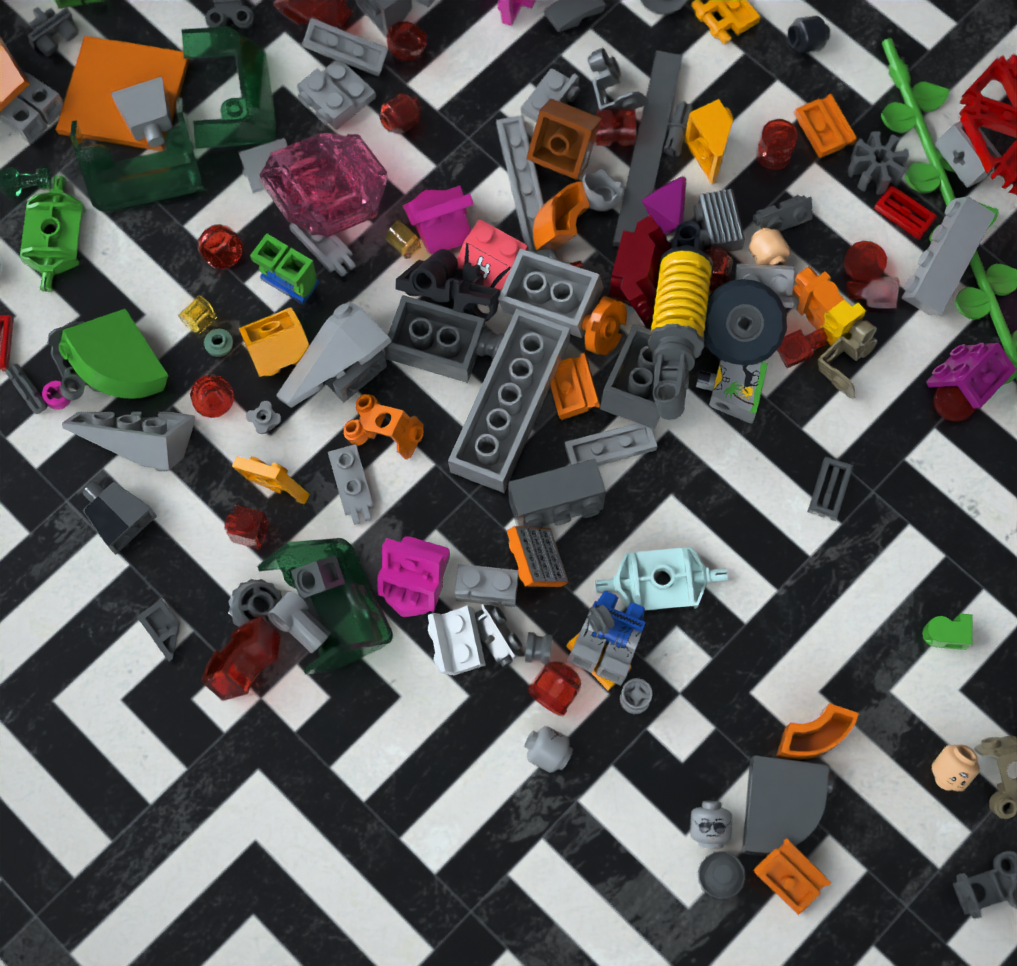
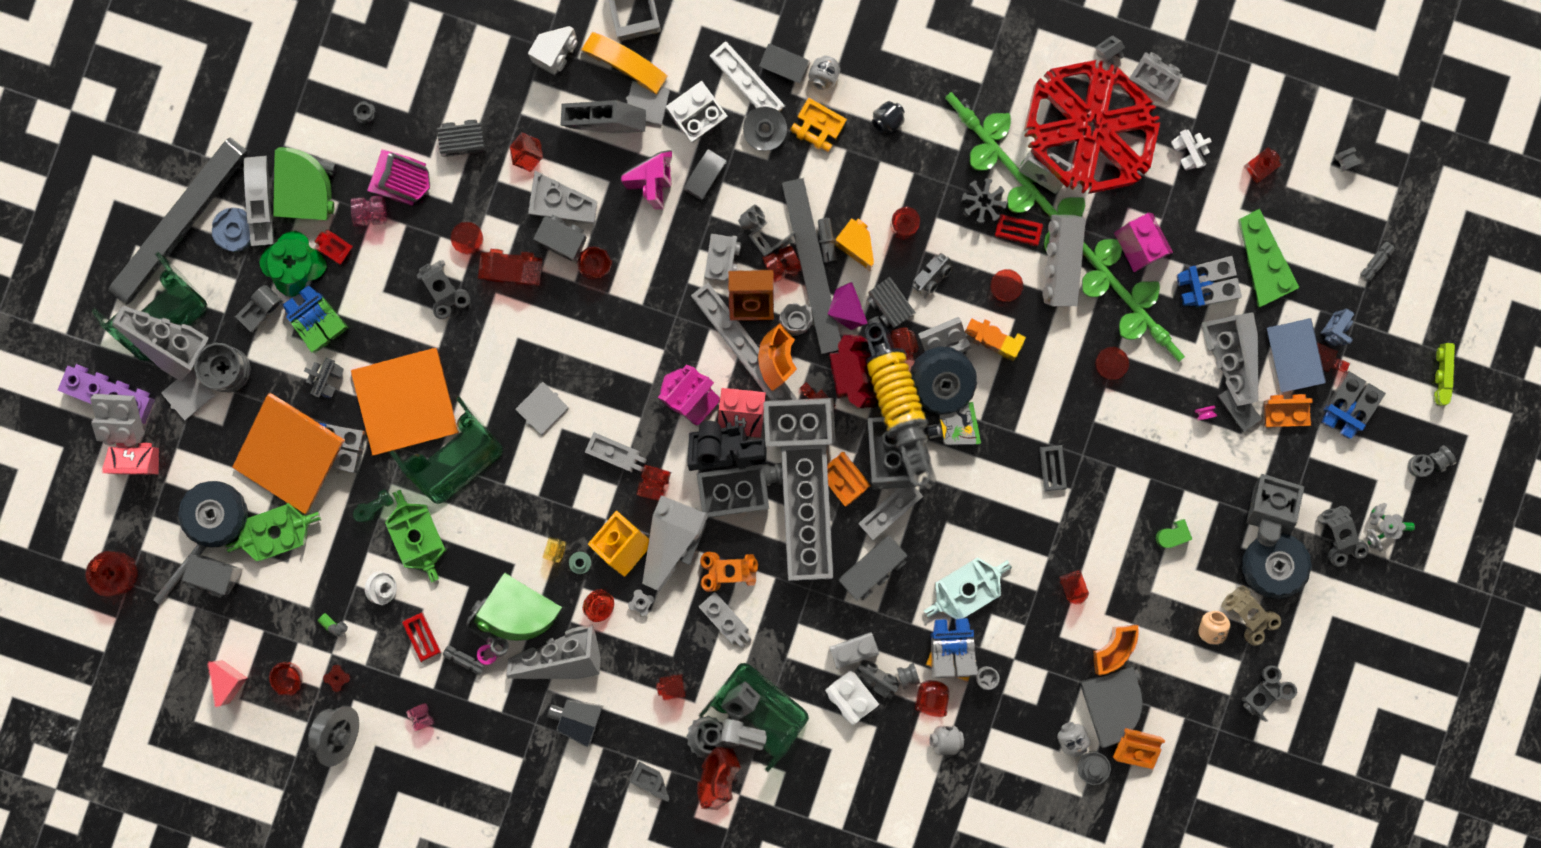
camera: 25 degrees left, 15 degrees up
(145, 110) = (434, 414): light grey torso -> none
(220, 246) = (544, 492): clear red hair -> none
(245, 118) = (517, 378): clear green windscreen -> none
(271, 477) = (672, 644): light orange wing -> none
(285, 269) = (605, 494): bright green hips -> none
(325, 182) = (592, 392): clear pink piece -> none
(335, 93) = (562, 328): light grey plate -> none
(344, 47) = (552, 291): light grey plate -> none
(352, 287) = (653, 482): none -> clear red wheel
(400, 114) = (619, 325): clear red head -> none
(403, 240) = (671, 424): clear yellow brick -> none
(412, 575) = (801, 665): dark pink piece -> none
(537, 557) = (879, 616): tile -> none
(600, 619) = (944, 645): dark grey plate -> none
(603, 326) = (847, 428): orange plate -> none
(769, 247) = (935, 309): light nougat head -> none
(796, 637) = (1075, 587): none -> clear red plate
(799, 348) = (987, 374): clear red plate -> none
(825, 126) = (932, 188): orange plate -> none
(858, 346) = (1029, 351): dark tan piece -> none
(879, 292) = (1025, 306): plate -> none
(976, 370) = (1116, 341): magenta bracket -> none

